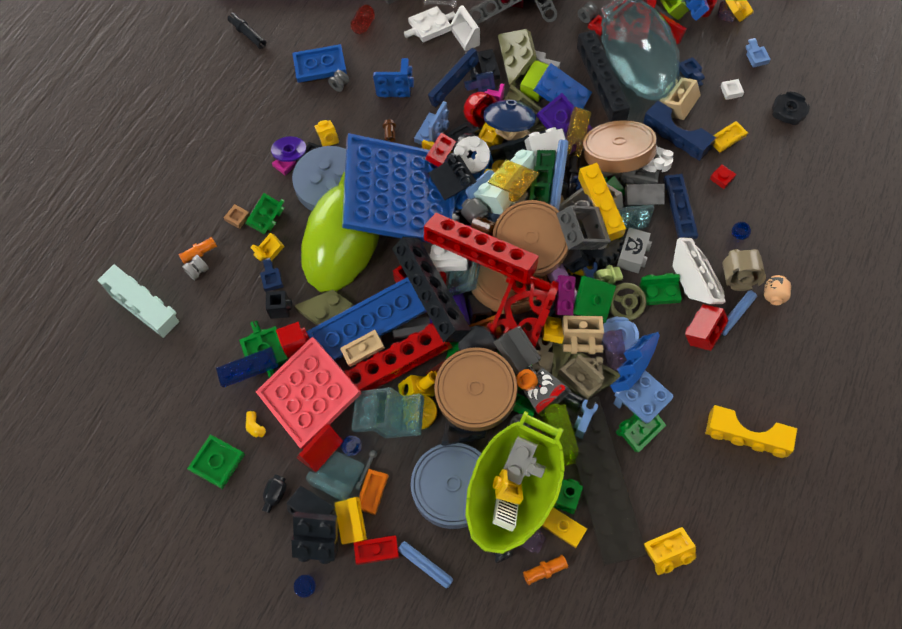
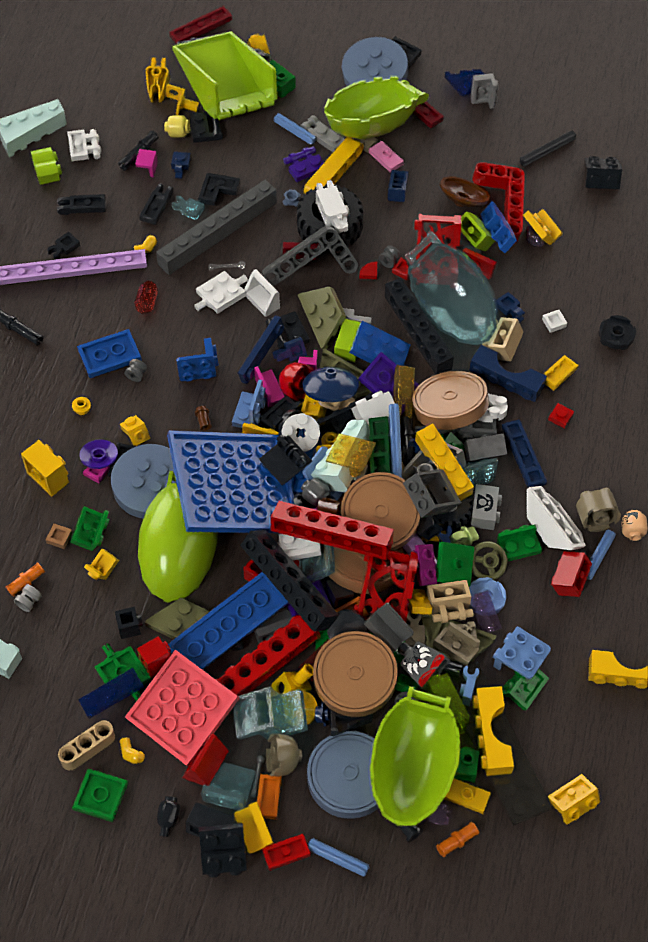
camera: 15 degrees left, 5 degrees down
(205, 410) = (81, 754): none -> tan beam
(238, 153) = (45, 467): none -> yellow brick
(271, 277) = (111, 595): dark blue plate -> none
(284, 105) = (81, 410): none -> yellow plate
(304, 586) = (221, 900): clear blue plate -> none
(351, 445) = (237, 754): clear blue plate -> none
(362, 348) = (229, 652): tan plate -> none
(392, 455) = (282, 755): none -> dark tan cylinder
(438, 422) = (322, 714): none -> dark blue plate
(440, 150) = (266, 432): plate -> none
(456, 114) = (272, 389): none -> dark pink panel
(505, 514) = (409, 786): white tile -> none
(506, 489) = (407, 766): yellow bracket -> none
(522, 461) = (416, 736): light grey hinge -> none
(527, 379) = (404, 655): orange tile -> none
(567, 23) = (369, 271): none -> red tile
(599, 494) = (496, 756): none -> yellow arch
(637, 360) = (509, 619): blue slope -> none
(741, 230) = (589, 469): clear blue plate -> none
(757, 55) = (573, 280): medium blue plate -> none

